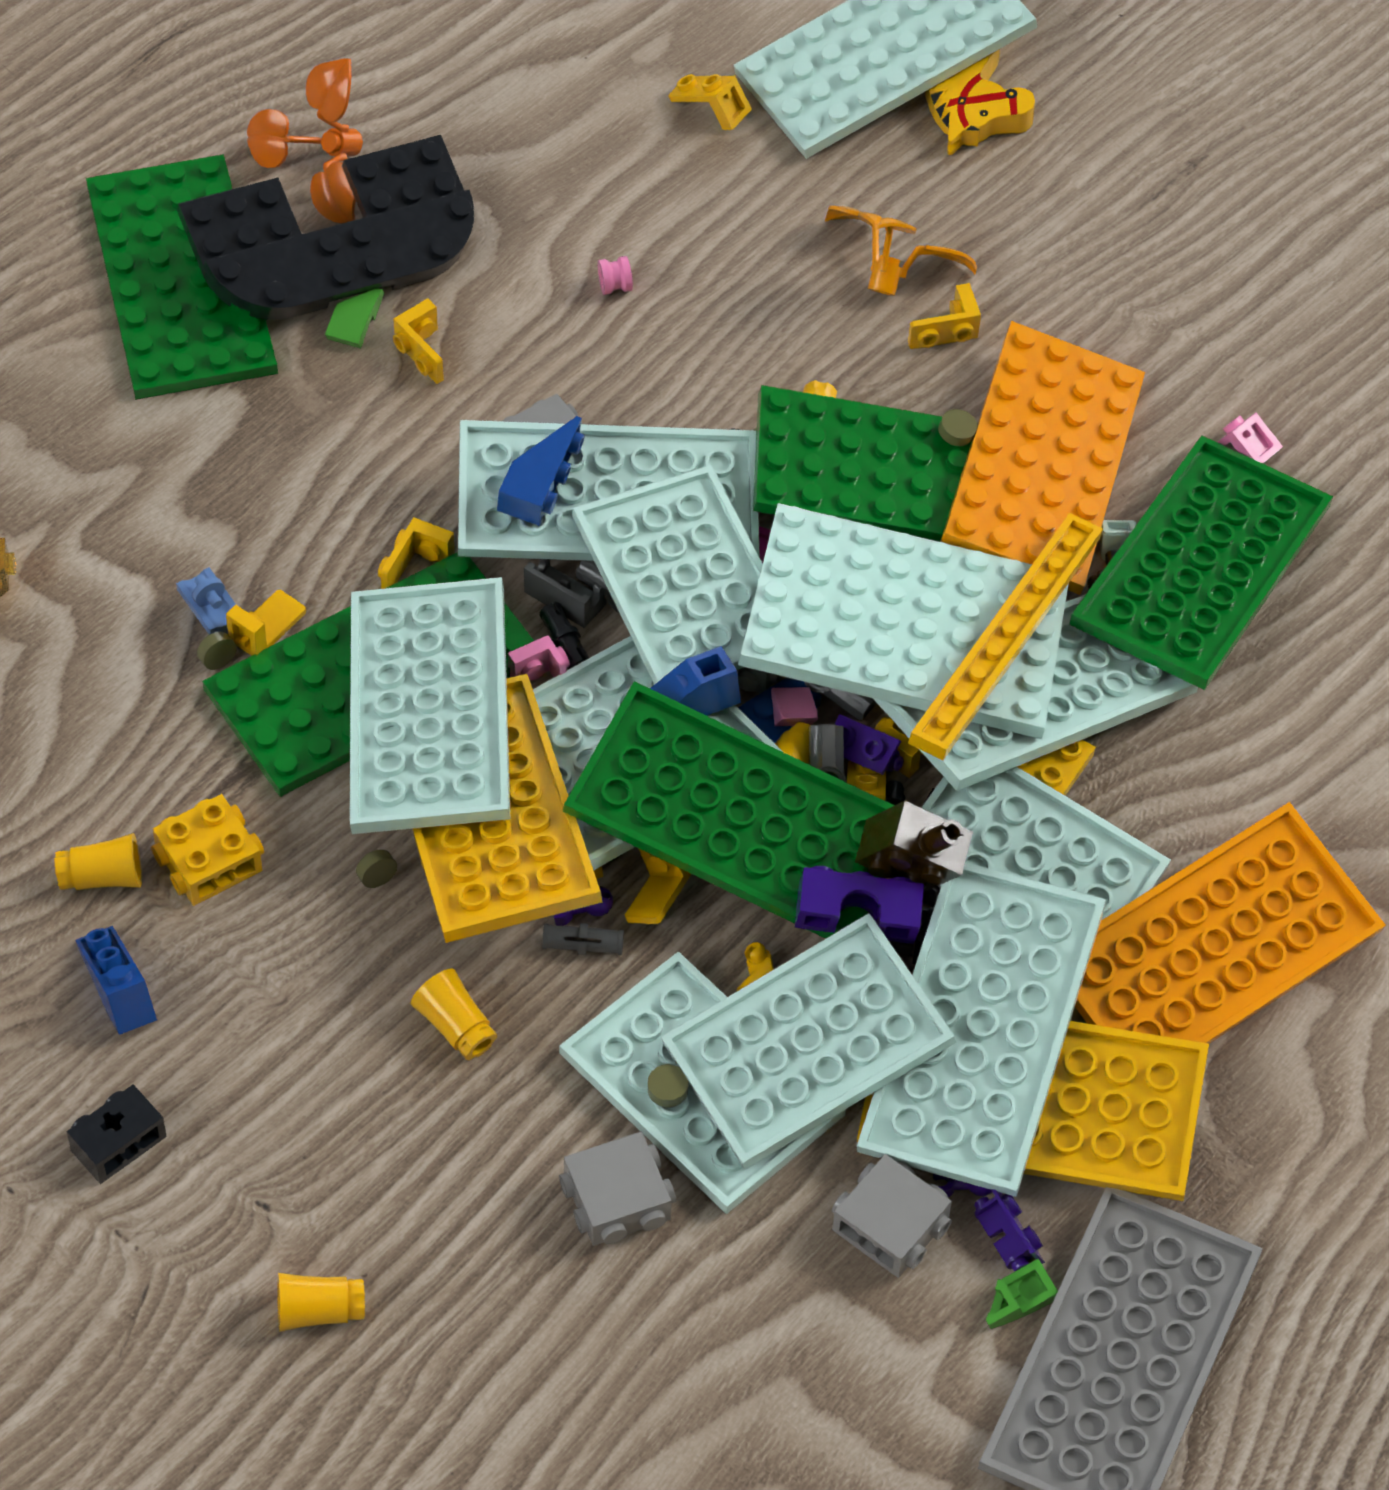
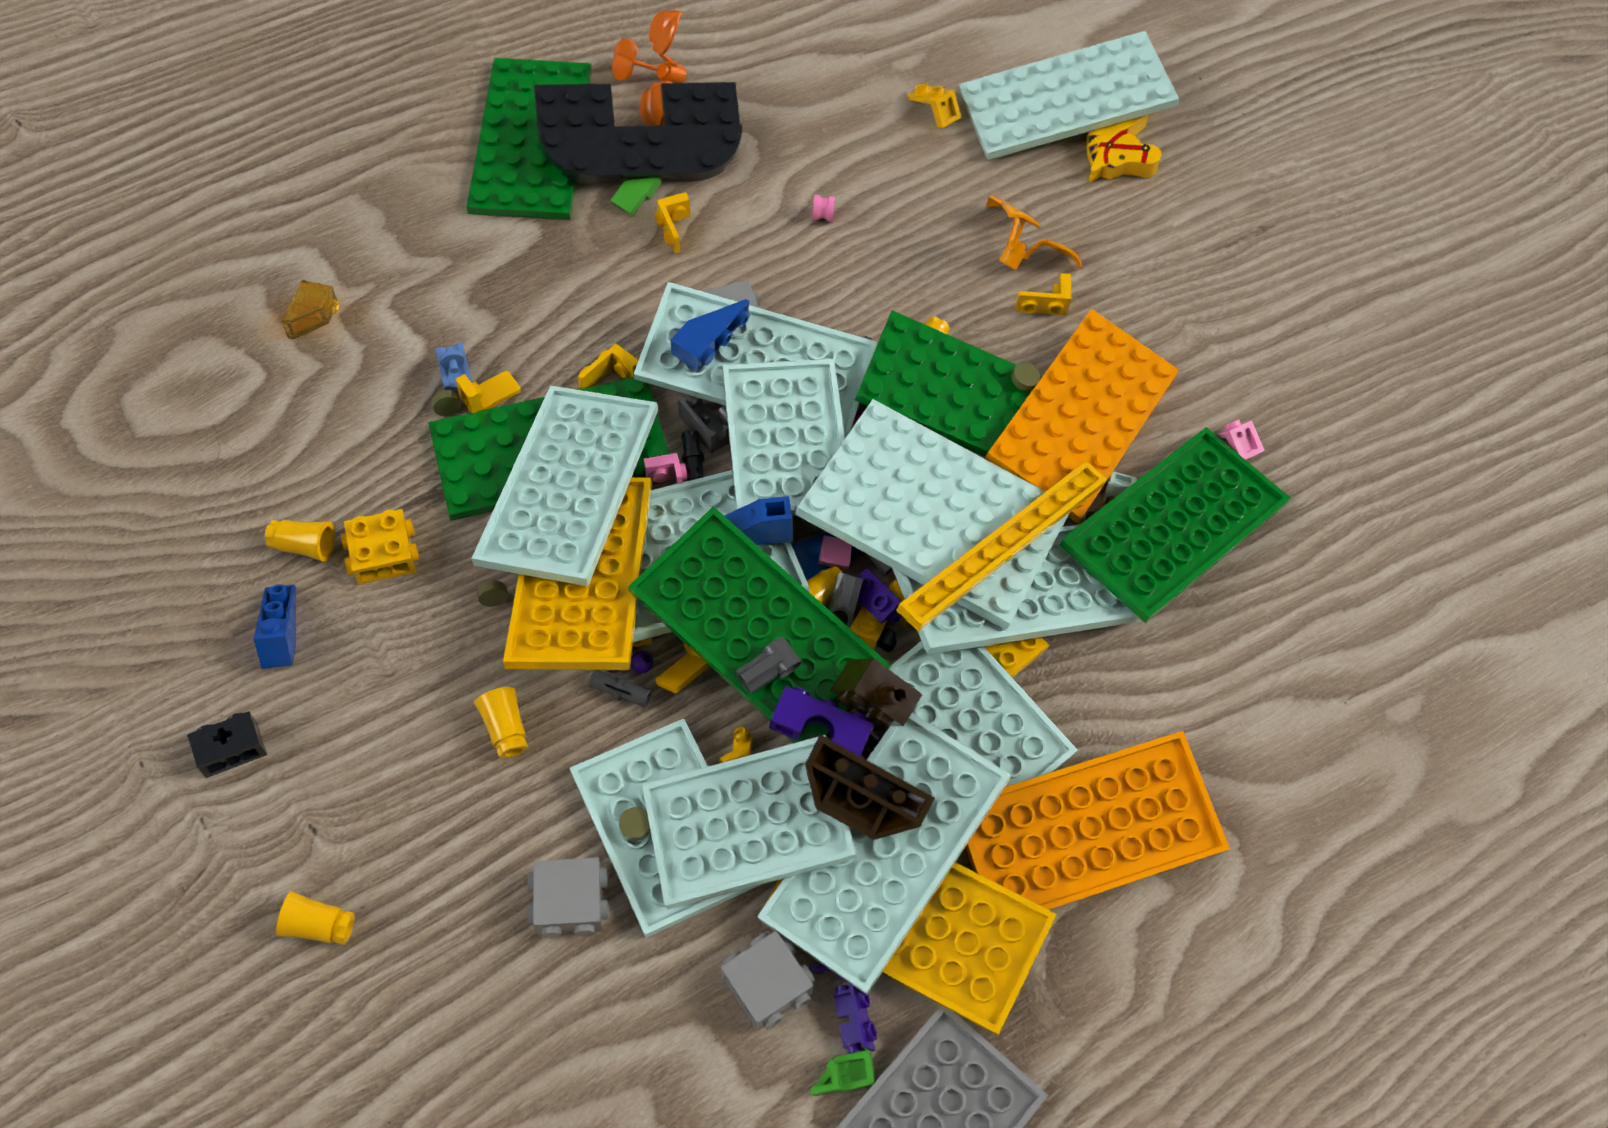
camera: 15 degrees right, 5 degrees up
(777, 844) = (776, 661): none -> dark grey piece
(941, 961) = (862, 792): none -> dark brown wedge

